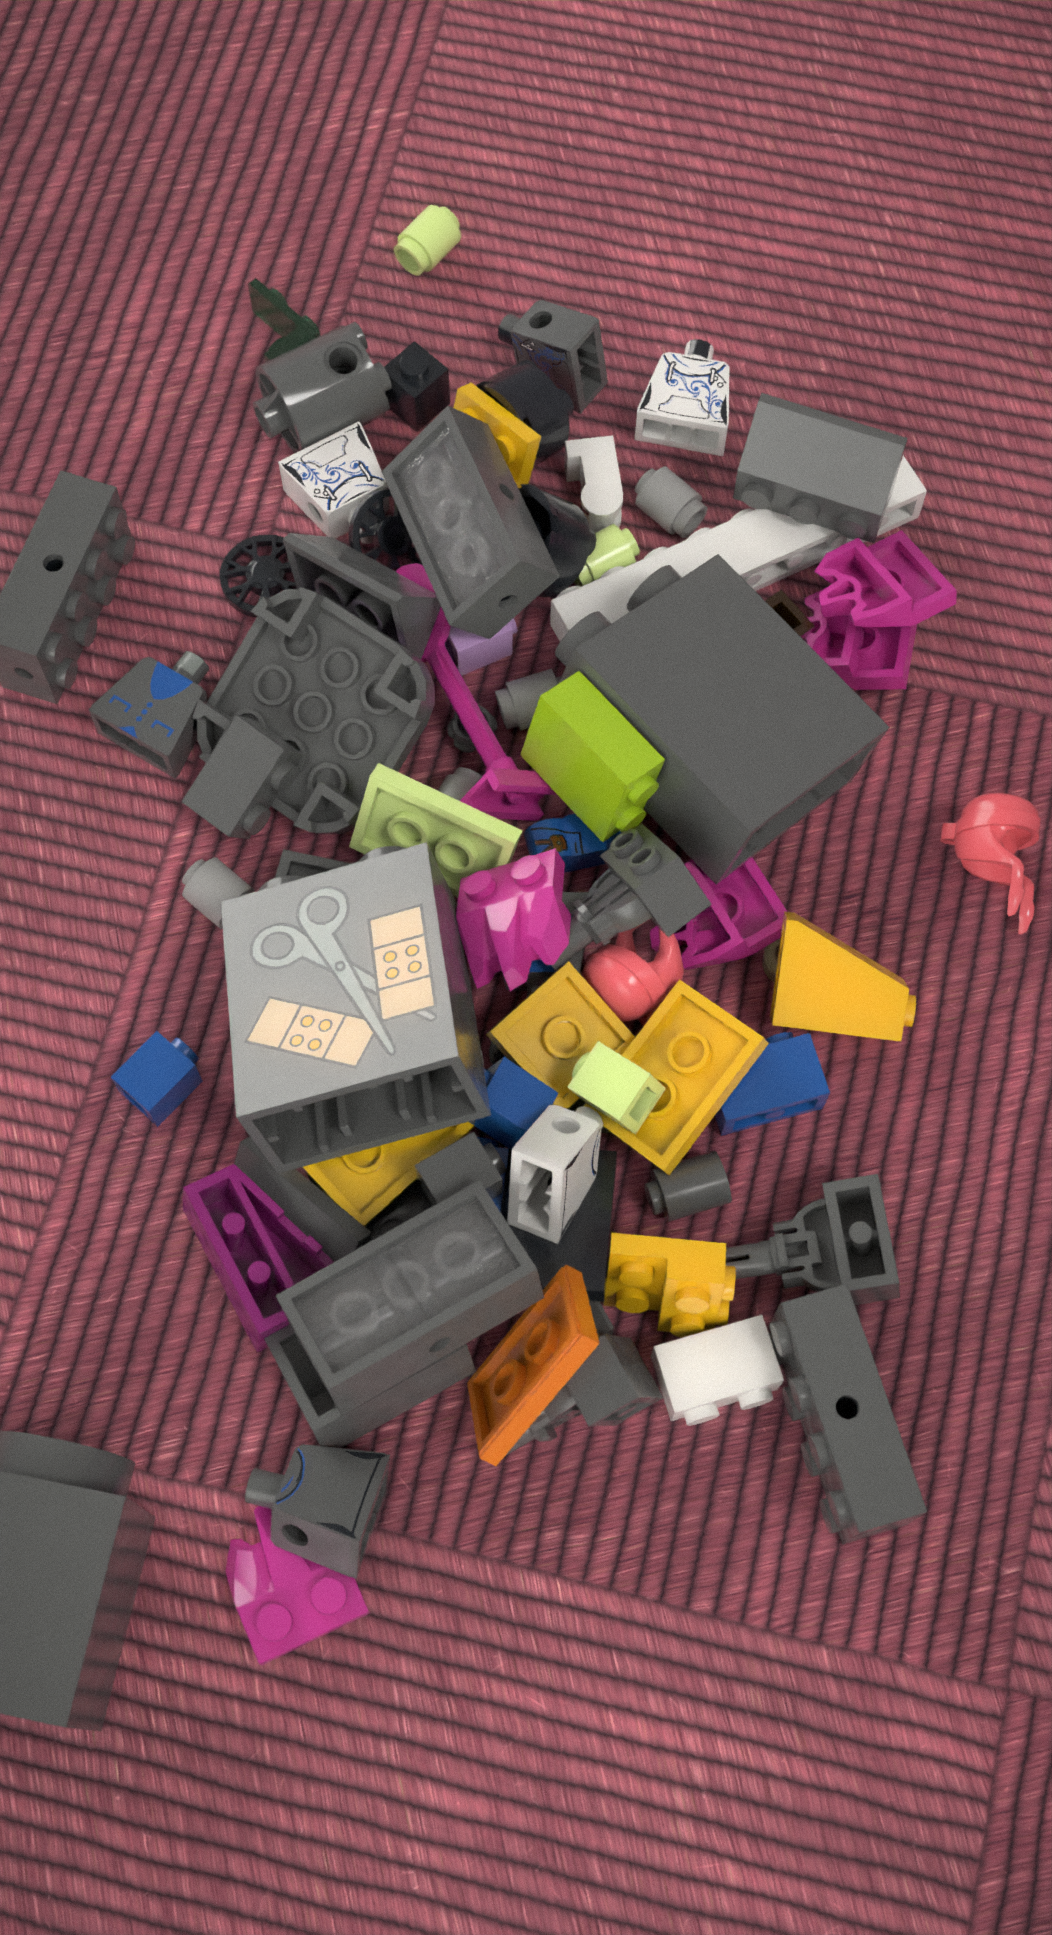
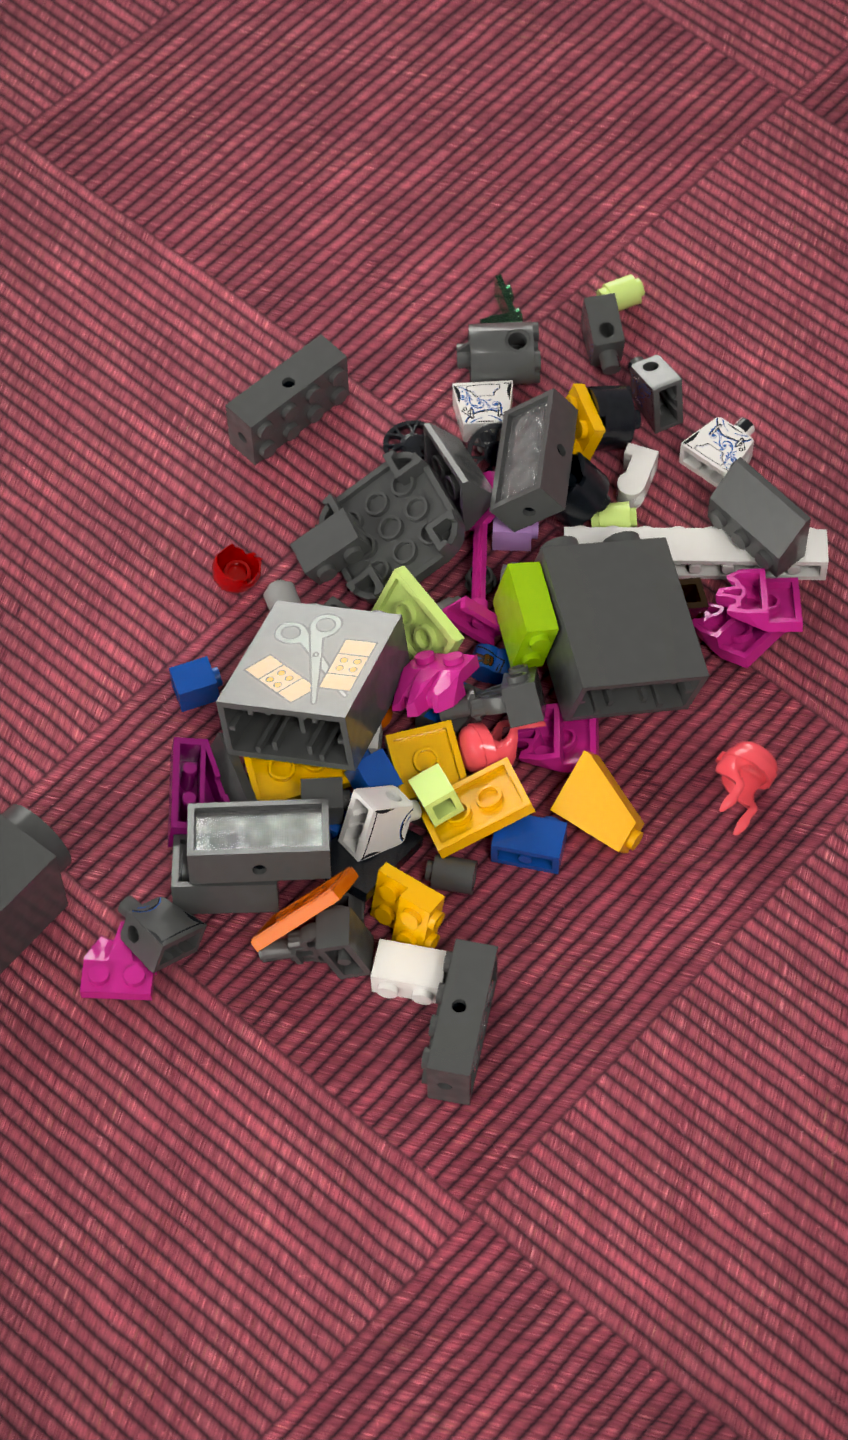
camera: 30 degrees right, 10 degrees down
(122, 875) = (236, 570): none -> red hair
(153, 711) = (302, 488): dark grey torso -> none
(418, 386) = (560, 371): black brick -> none
(440, 301) = (603, 332): none -> dark grey torso
(670, 501) = (673, 504): light grey brick -> none
(830, 1245) = (521, 937): dark grey brick -> none

